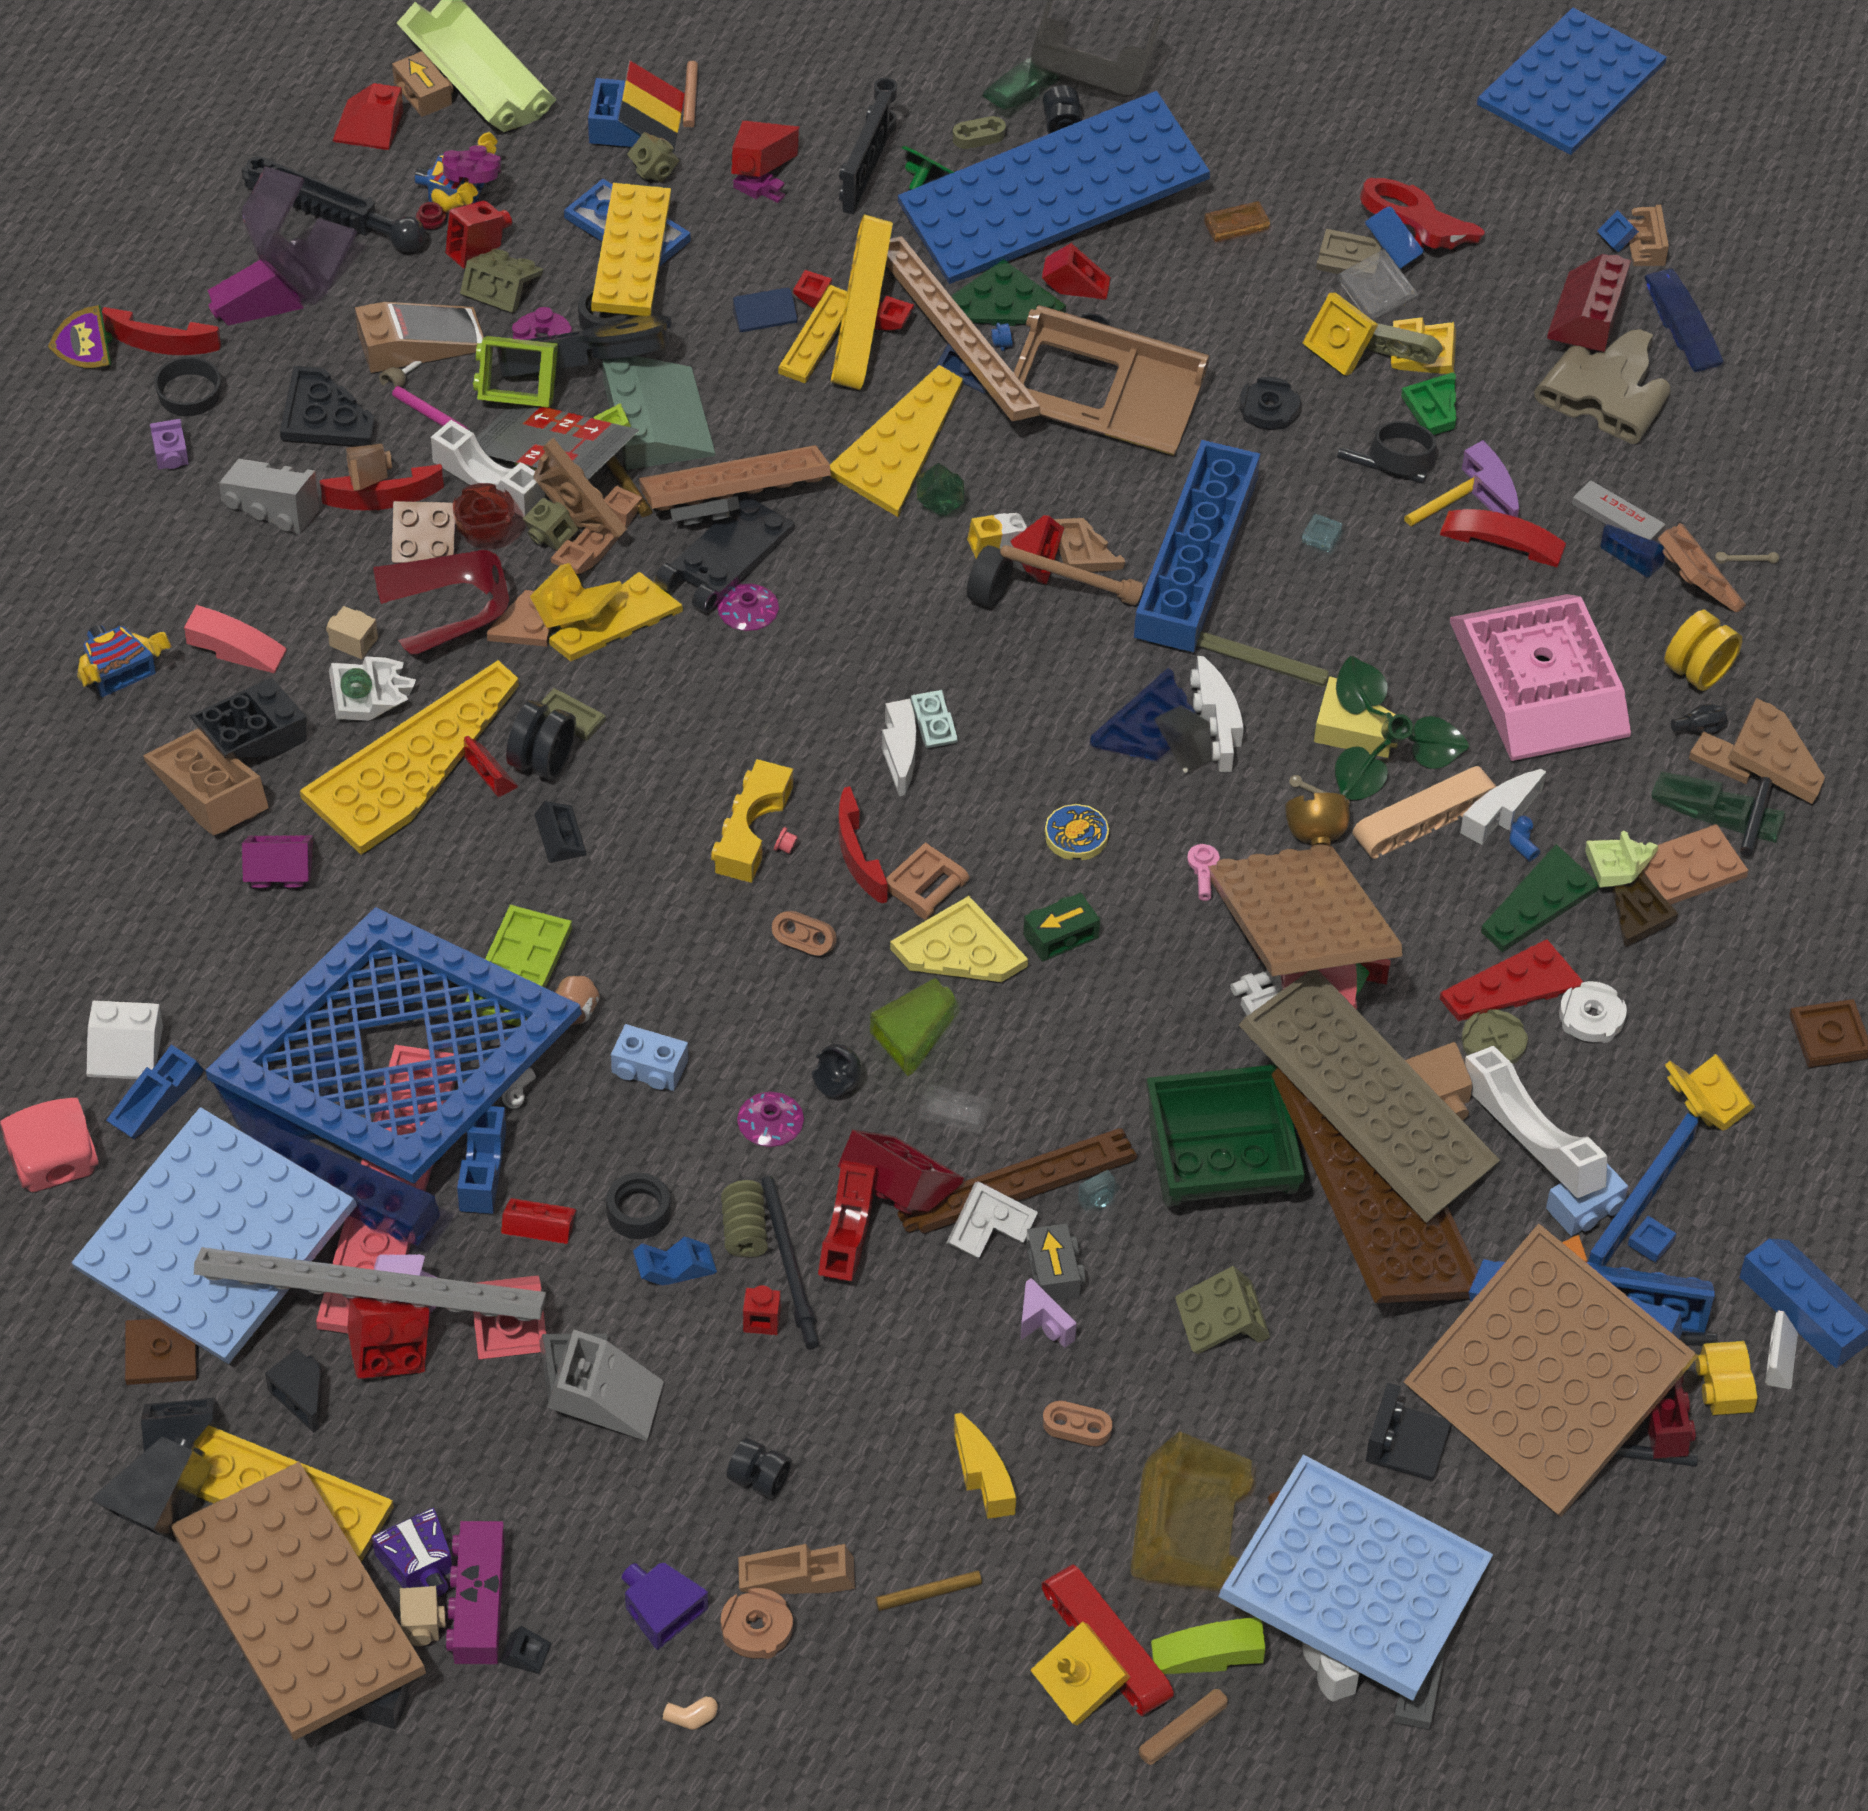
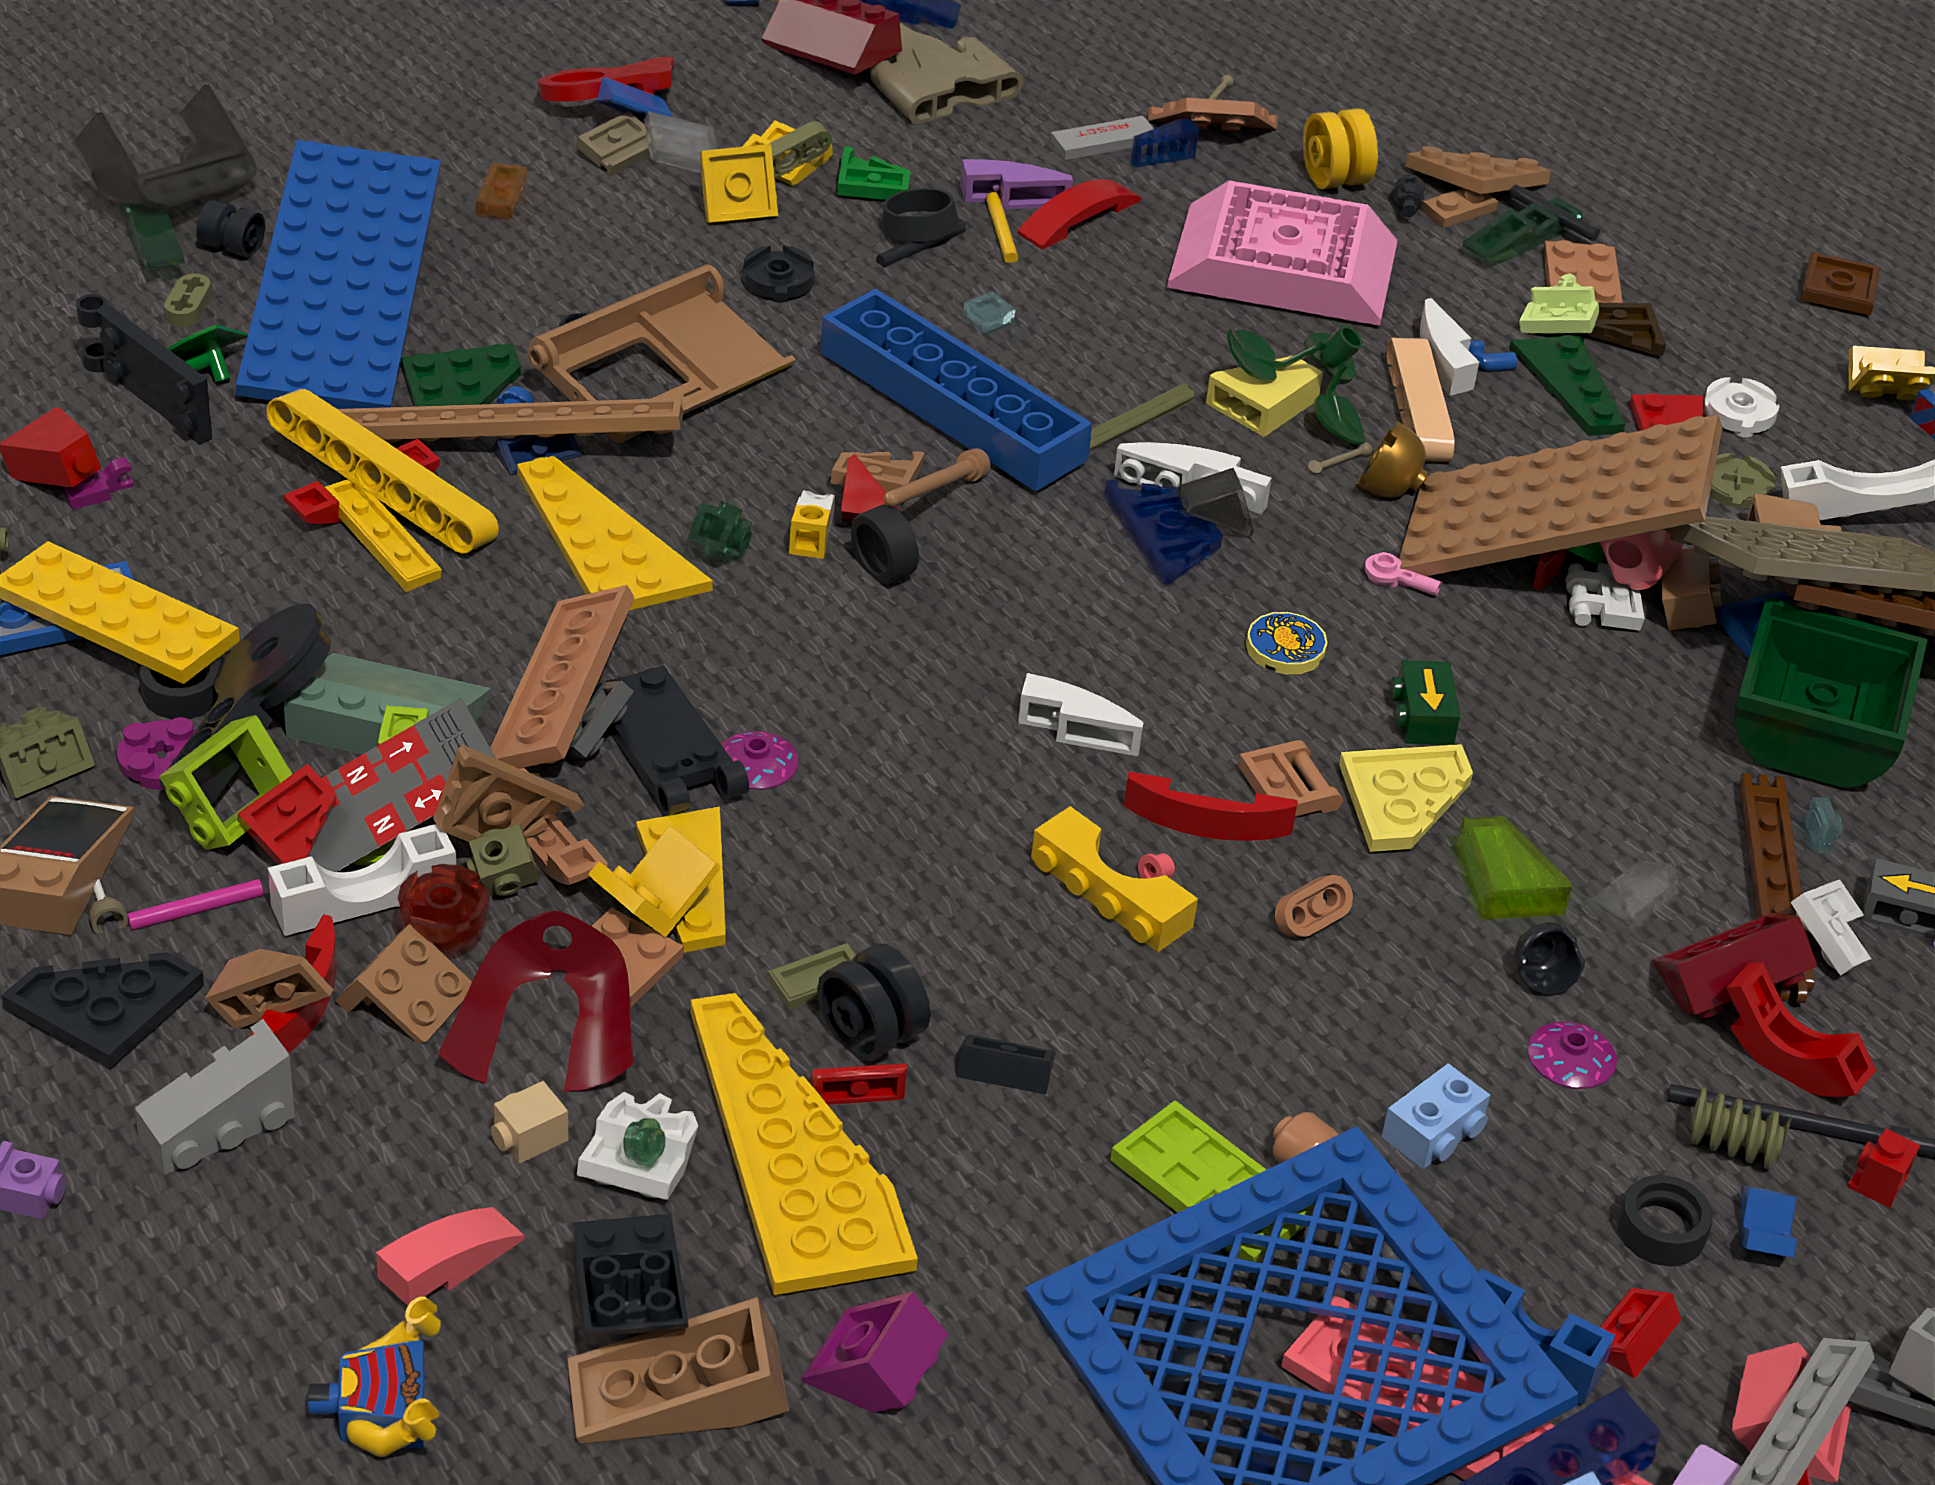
camera: 65 degrees left, 10 degrees down
(510, 413) = (290, 816): none -> red wing
(764, 309) = (303, 559): dark blue slope -> none
(933, 719) = (1062, 671): light aqua slope -> none
(1075, 274) = (474, 318): red slope -> none

